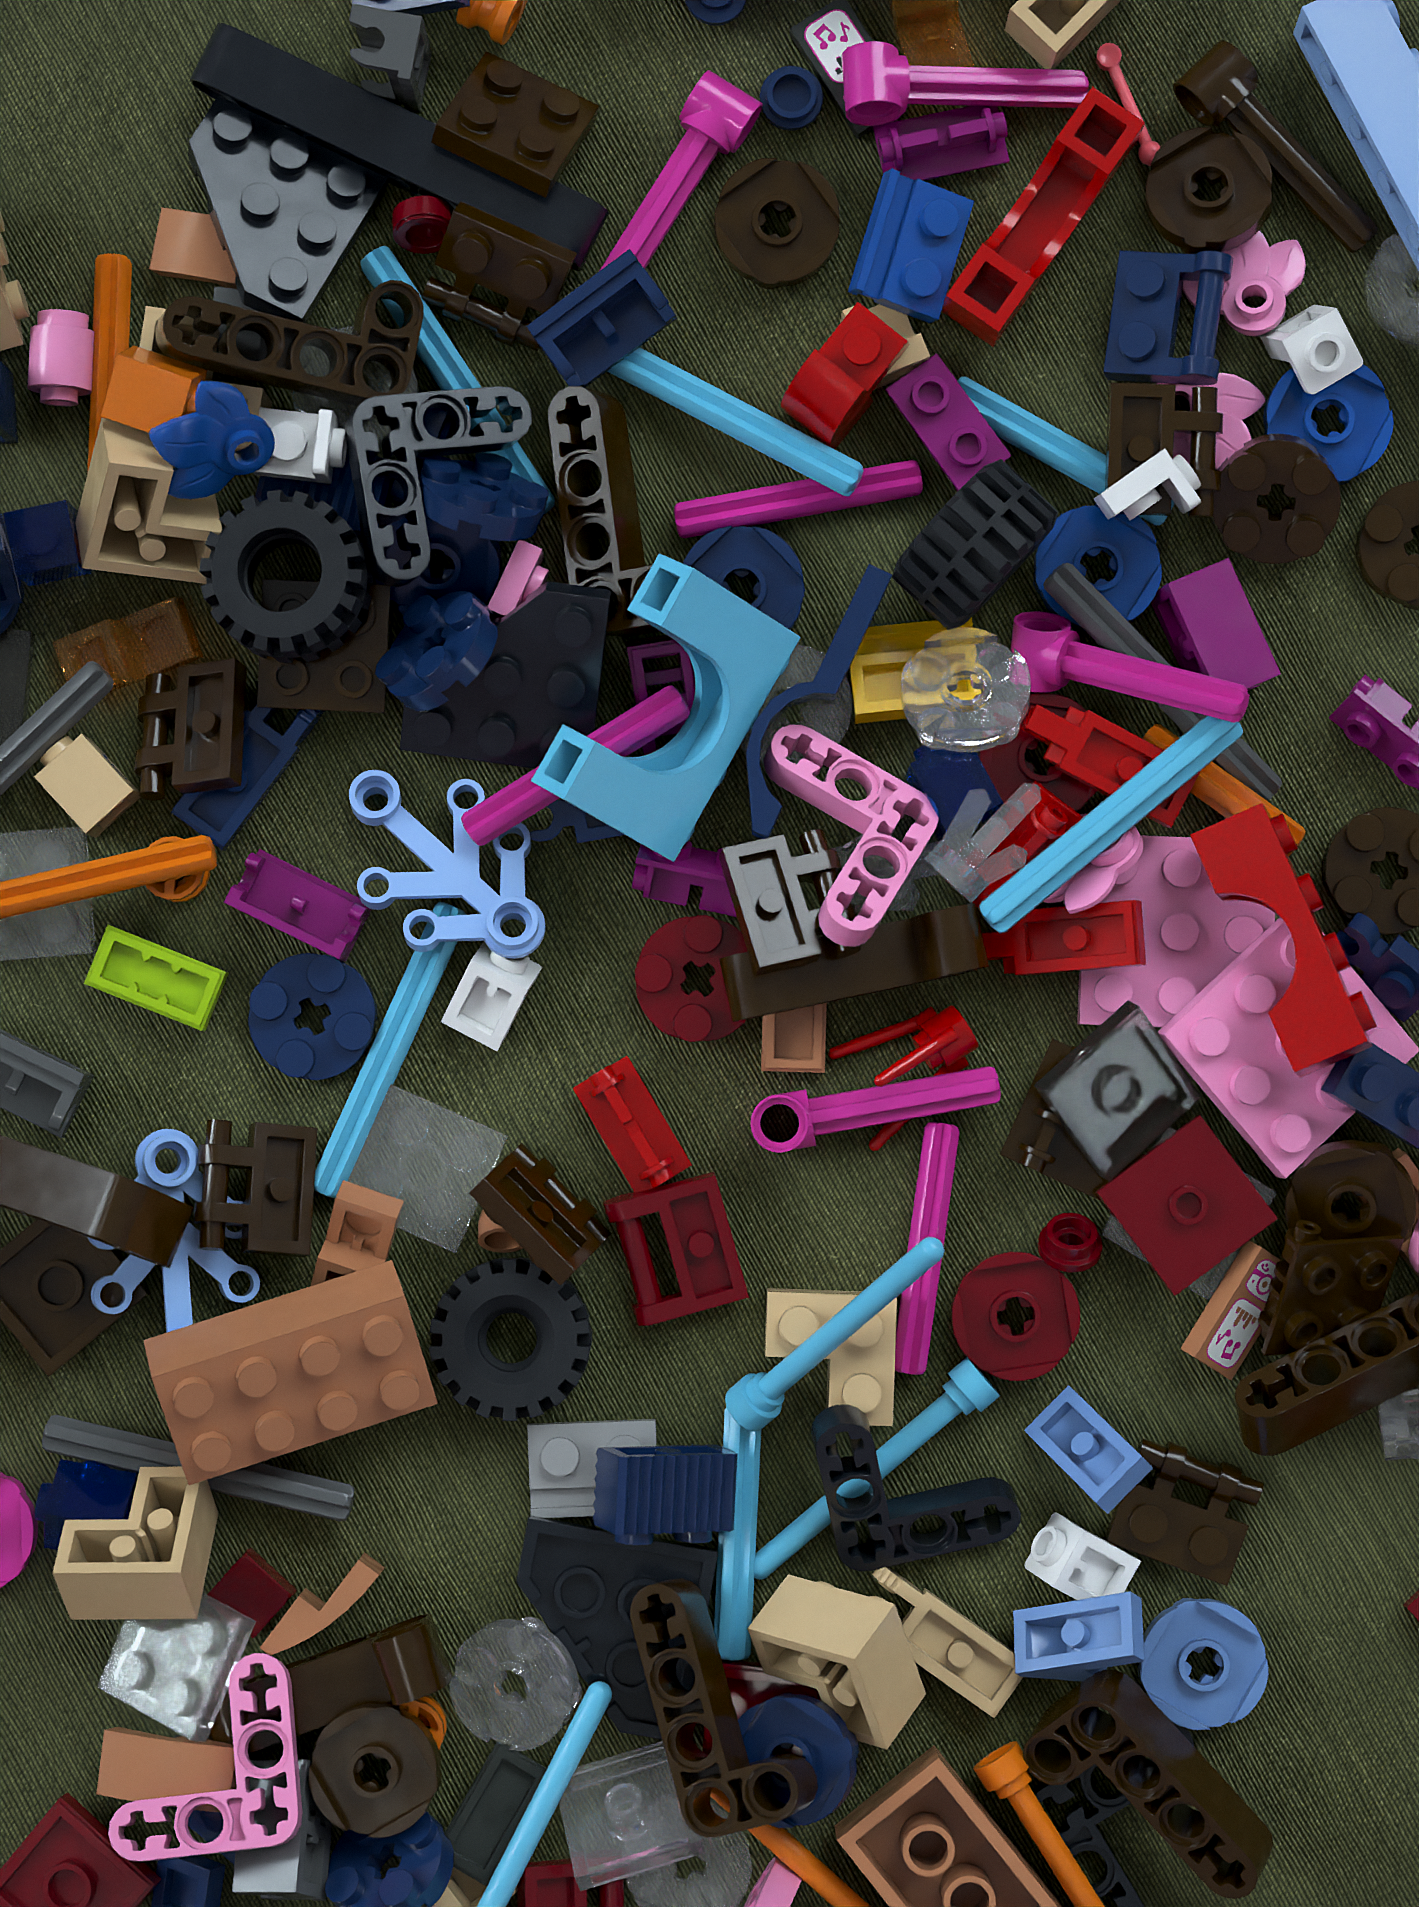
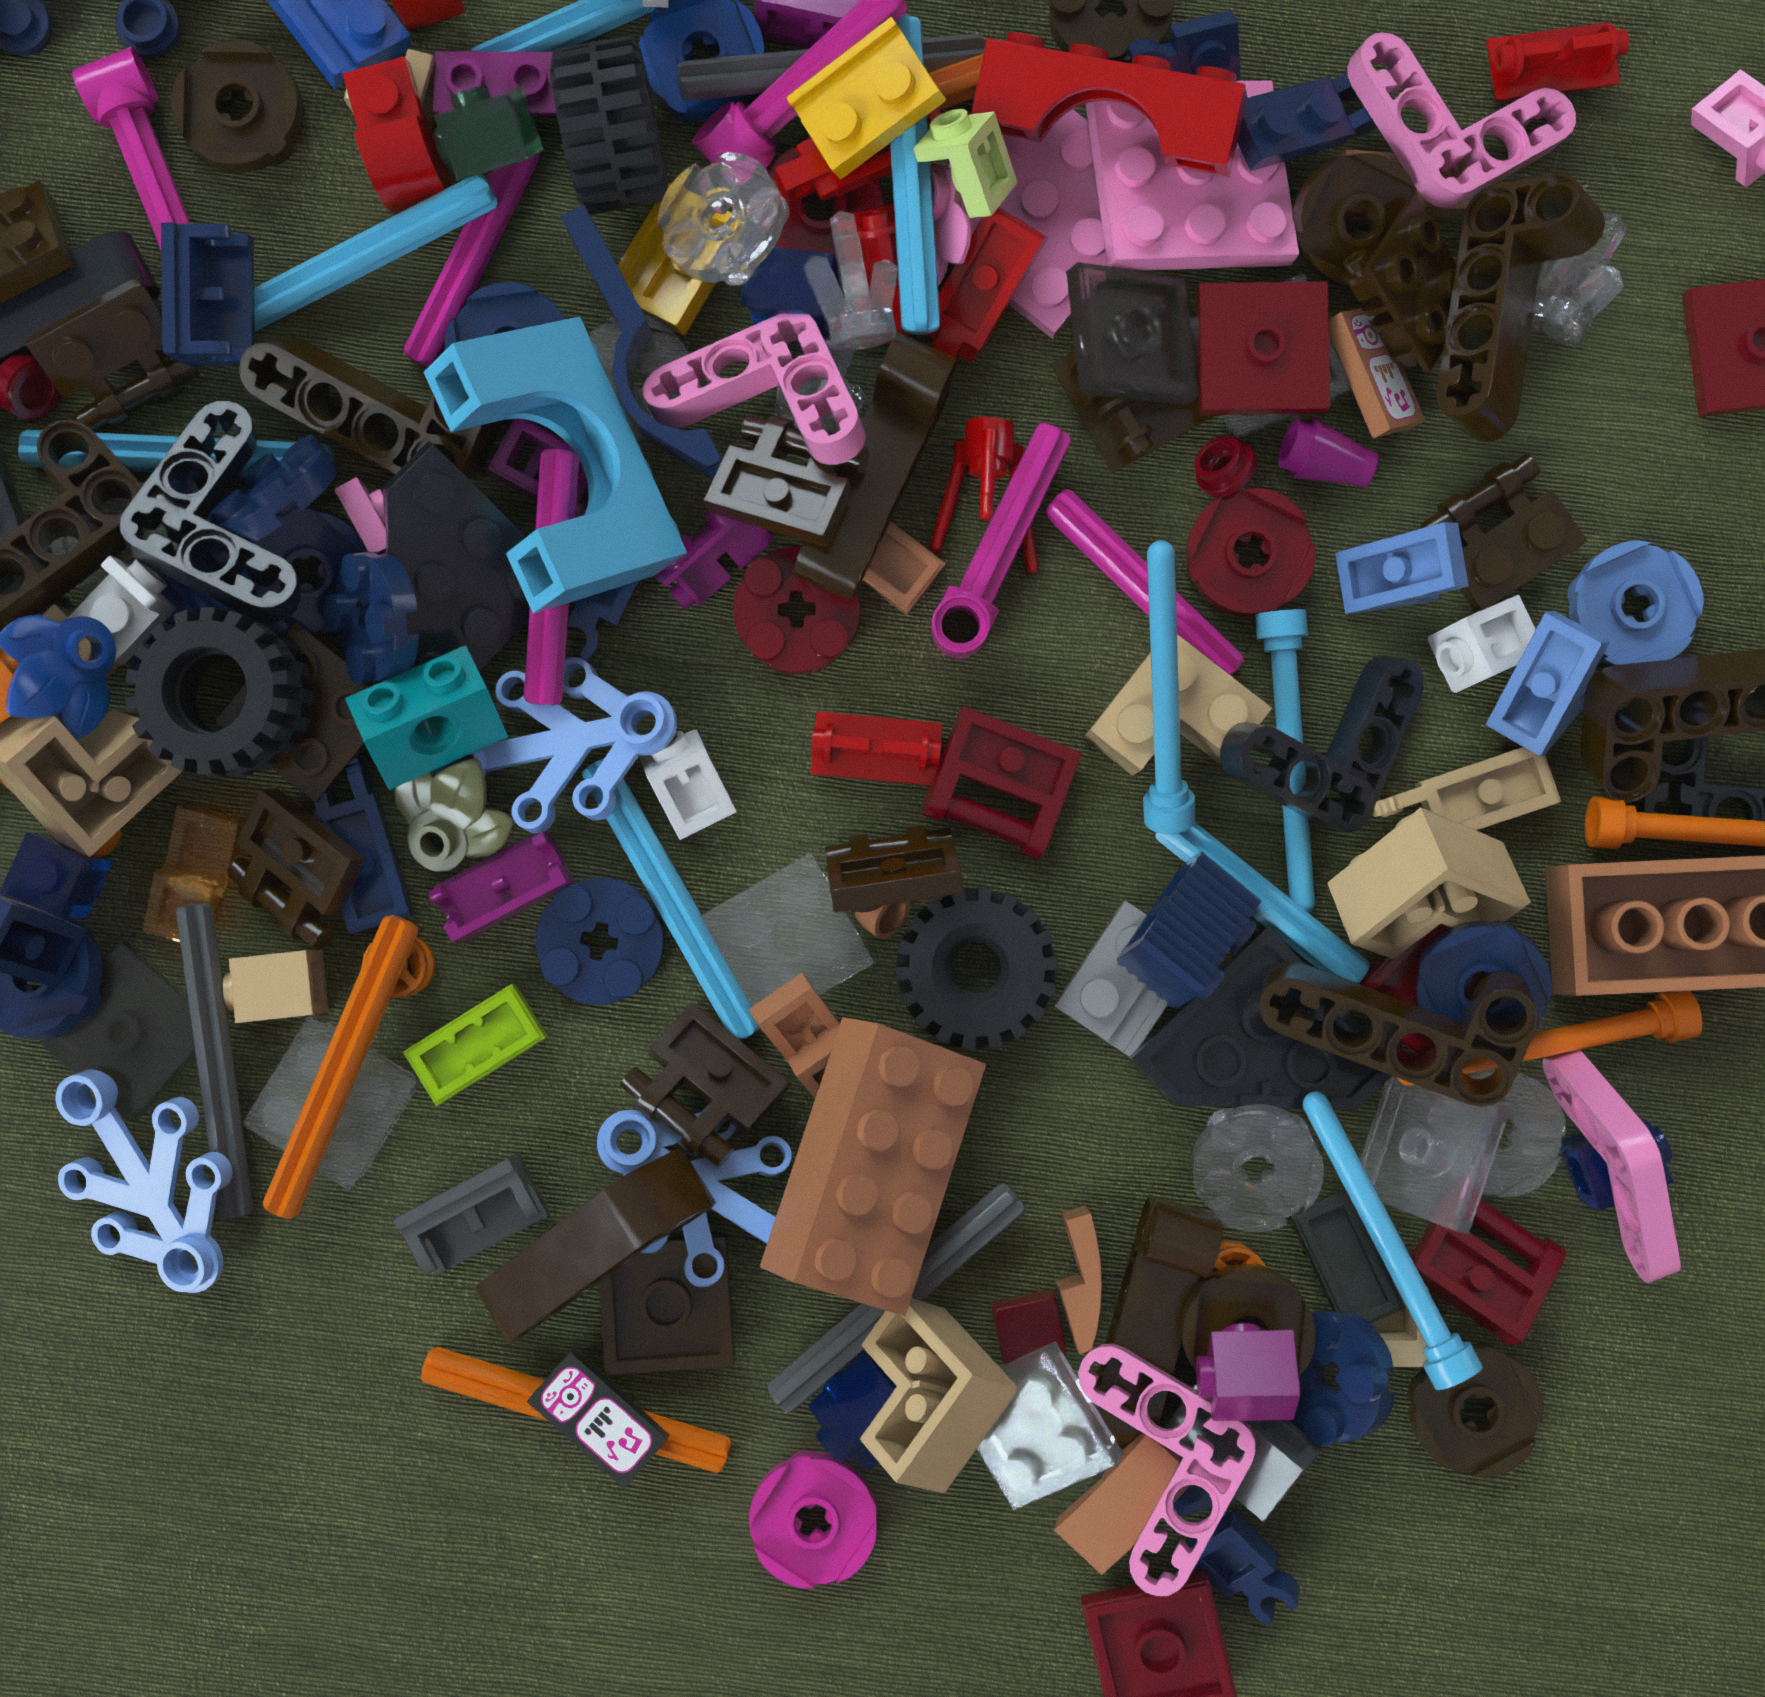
camera: 55 degrees left, 0 degrees up
(331, 820) = (456, 811): none -> olive plate
(339, 1792) = (1249, 1374): none -> magenta brick
(389, 750) = (426, 717): none -> teal brick
(897, 449) = (486, 131): none -> clear green brick
(1140, 1317) = (1323, 454): none -> magenta cone
(1142, 740) = (866, 98): none -> yellow plate
(1160, 863) = (976, 156): none -> yellowish green bracket

